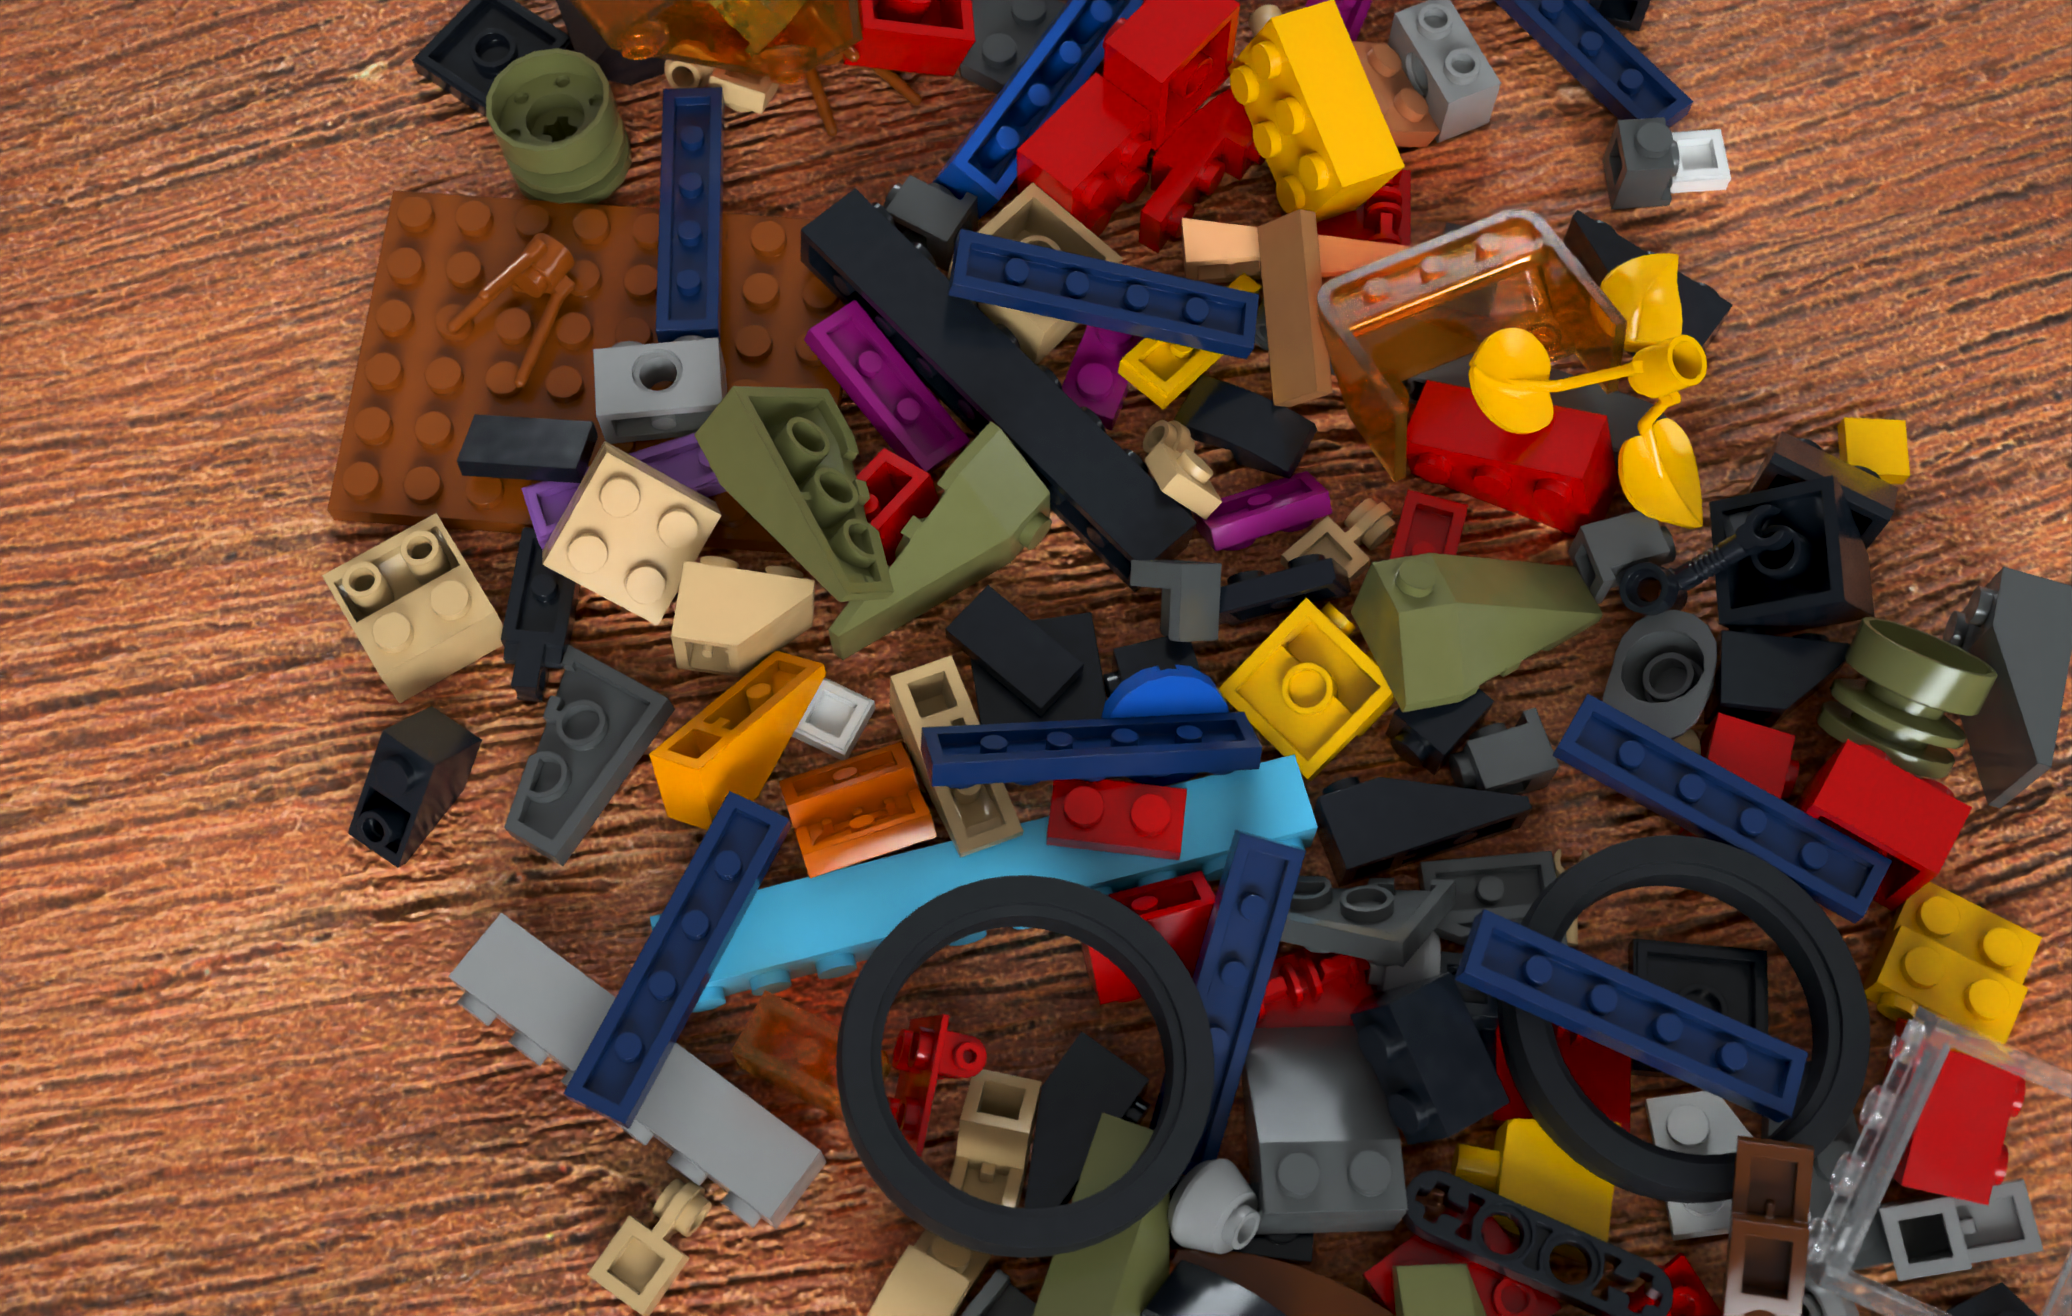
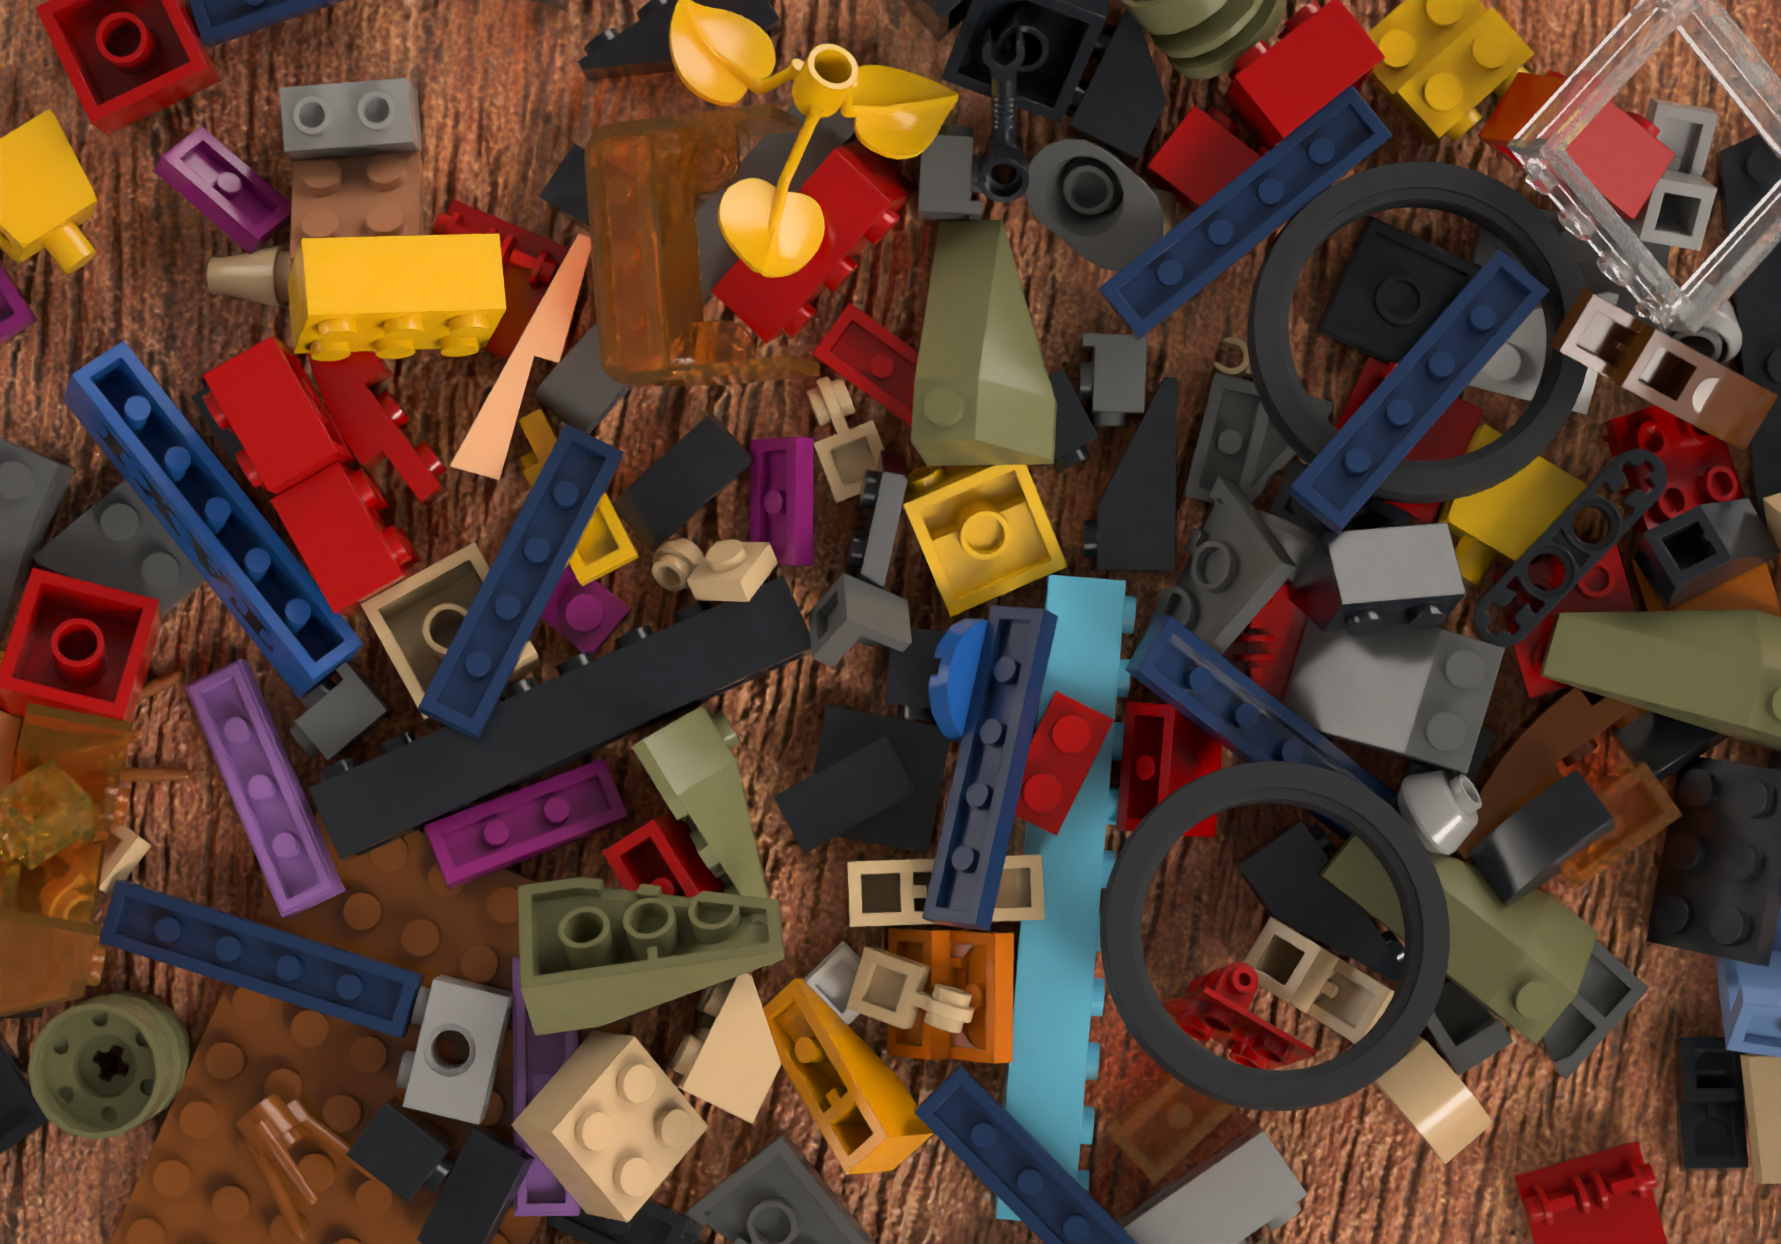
camera: 70 degrees left, 20 degrees up
(553, 372) = (403, 1151): none -> black brick
(842, 748) = (893, 989): none -> tan plate
(864, 162) = (265, 788): none -> medium lavender tile
(1290, 293) = (591, 397): medium nougat tile -> none

